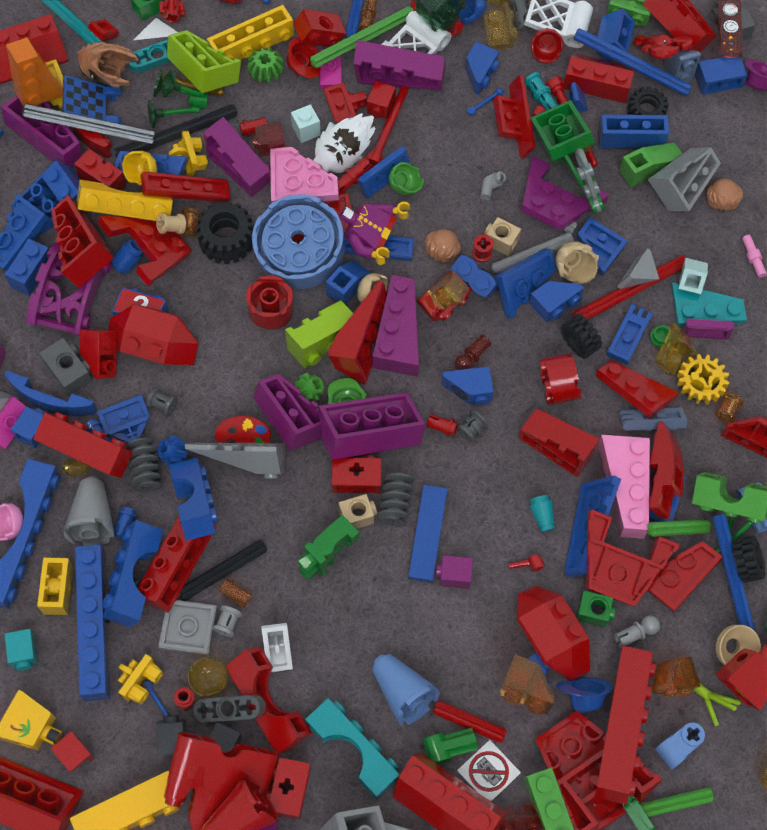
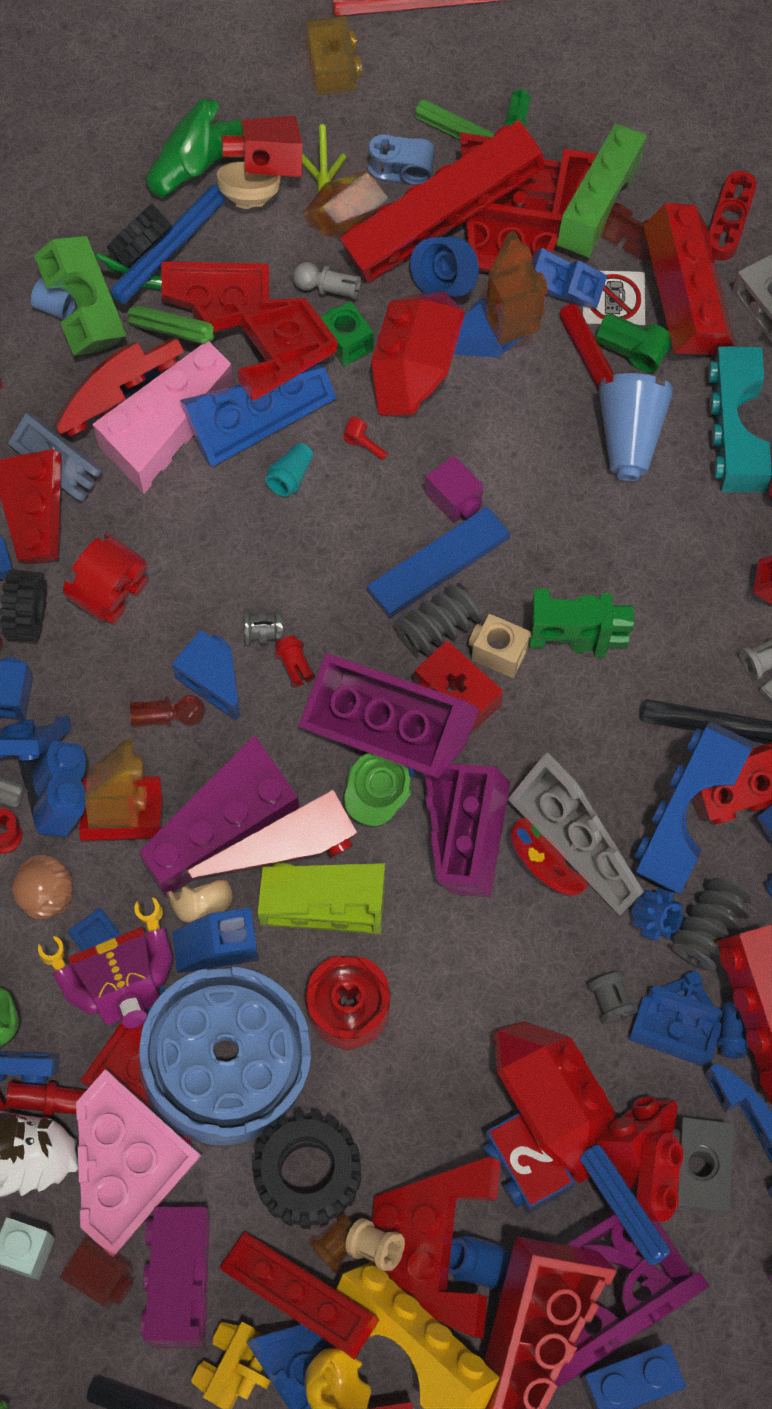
camera: 135 degrees left, 0 degrees up
(78, 338) = (660, 1175): none -> red plate
(83, 313) = (625, 1205): none -> blue axle
(235, 592) = (728, 689): clear orange pin -> none
(249, 127) = (95, 1327): red pin -> none
(277, 646) = (728, 585): white slope -> none
(310, 386) = (409, 843): bright green gear -> none
(521, 750) = (570, 281): none -> blue slope
(559, 441) = (188, 515): red wedge -> none

